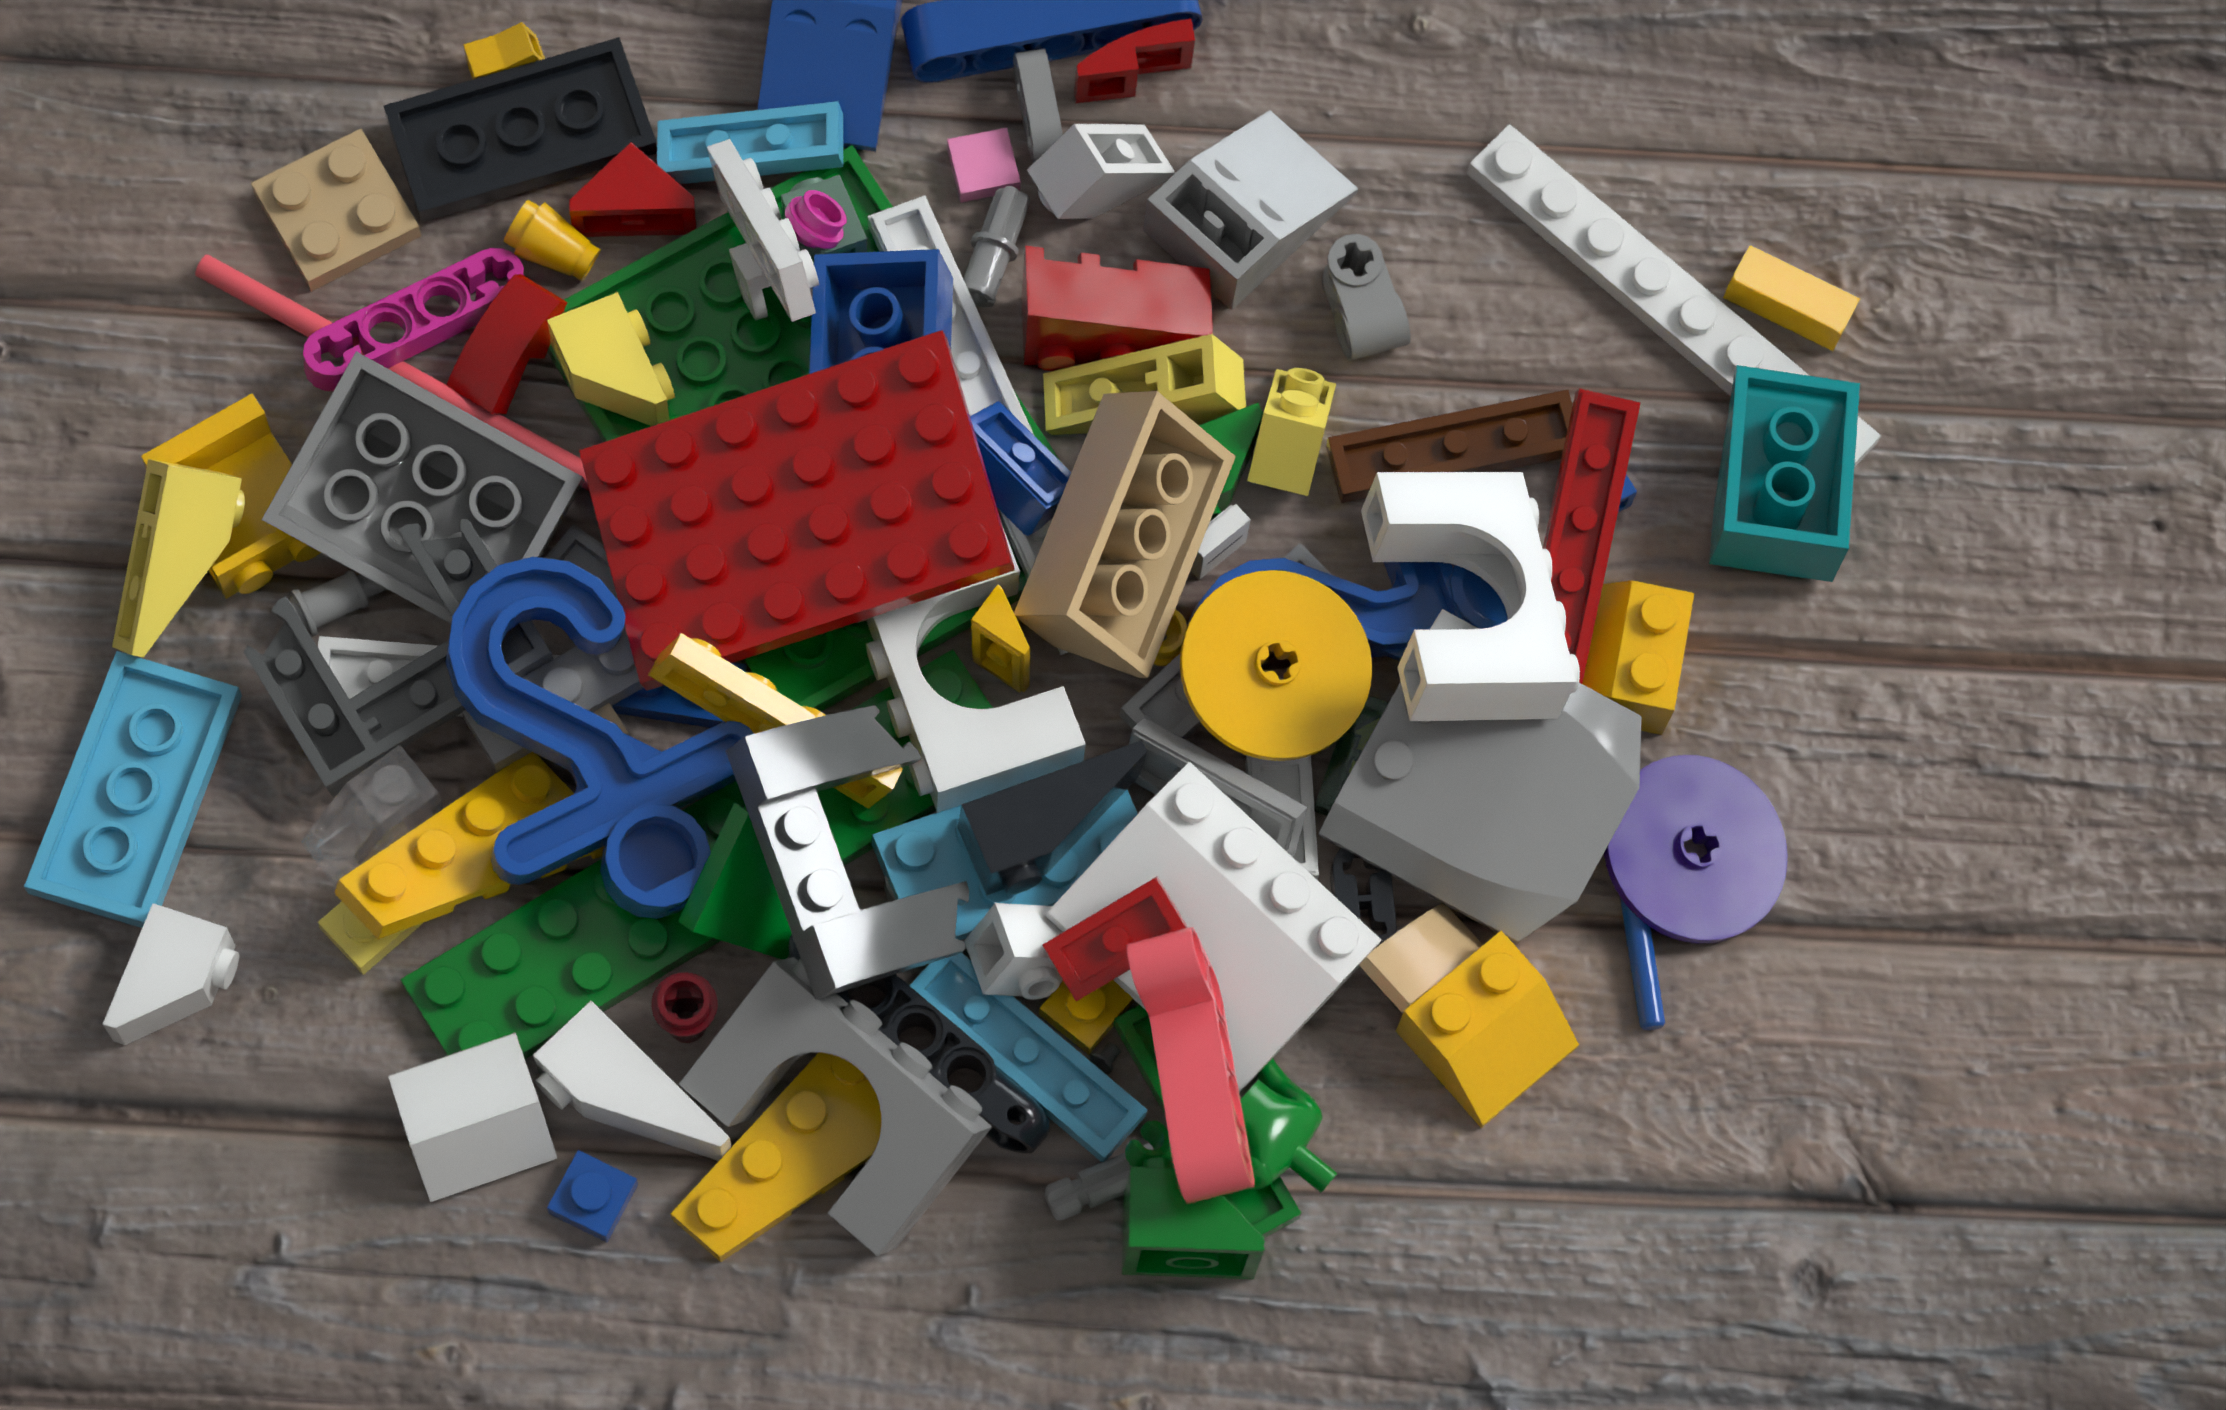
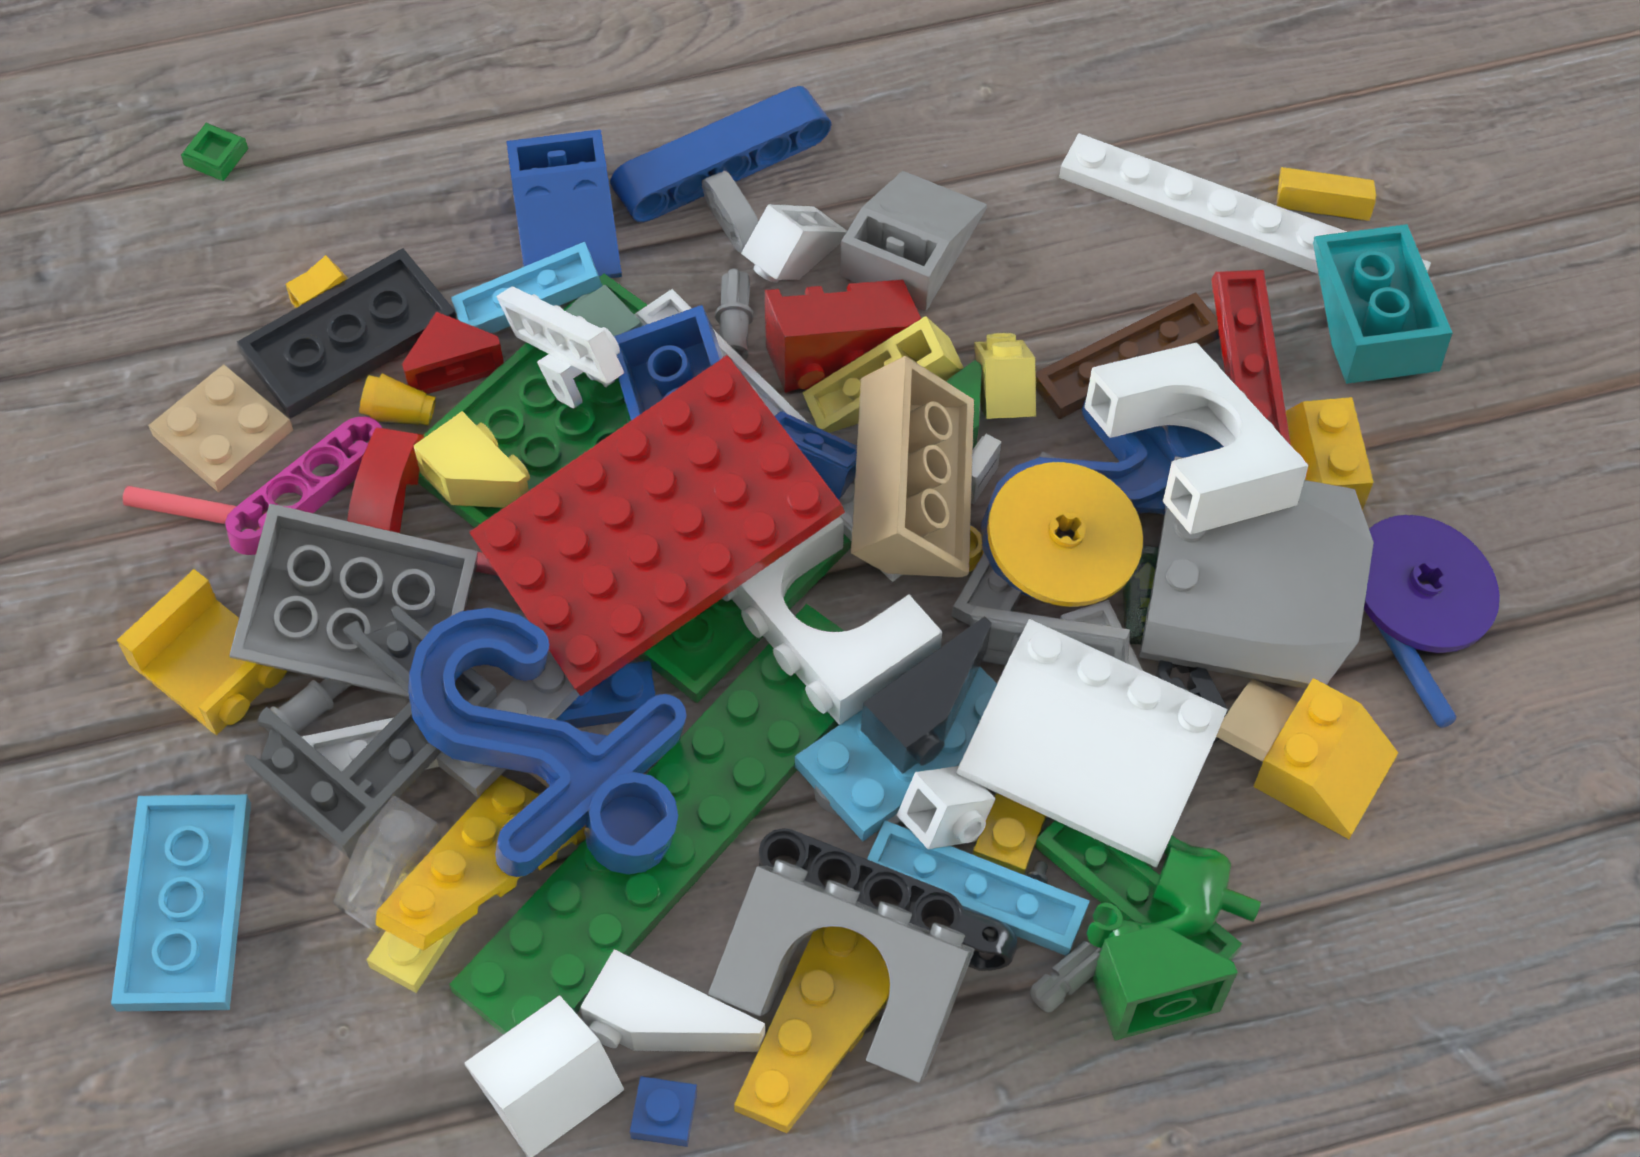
camera: 10 degrees left, 10 degrees down
(170, 974) = (255, 1037): white slope -> none
(177, 537) = (163, 692): light yellow slope -> none
(682, 994) = (692, 932): dark red cone -> none
(729, 693) = (696, 683): yellow plate -> none
(737, 894) = (719, 813): green tile -> none
(816, 219) = (601, 312): dark pink plate -> none
(835, 939) = (806, 835): dark grey wedge -> none
(982, 164) = (704, 263): bright pink tile -> none
(1000, 642) = (846, 581): yellow slope -> none
(1097, 946) = (1023, 768): red plate -> none
(1115, 67) = (781, 169): red slope -> none
(1193, 1064) = (1126, 842): coral beam -> none
(1364, 307) = (1021, 273): light grey piece -> none

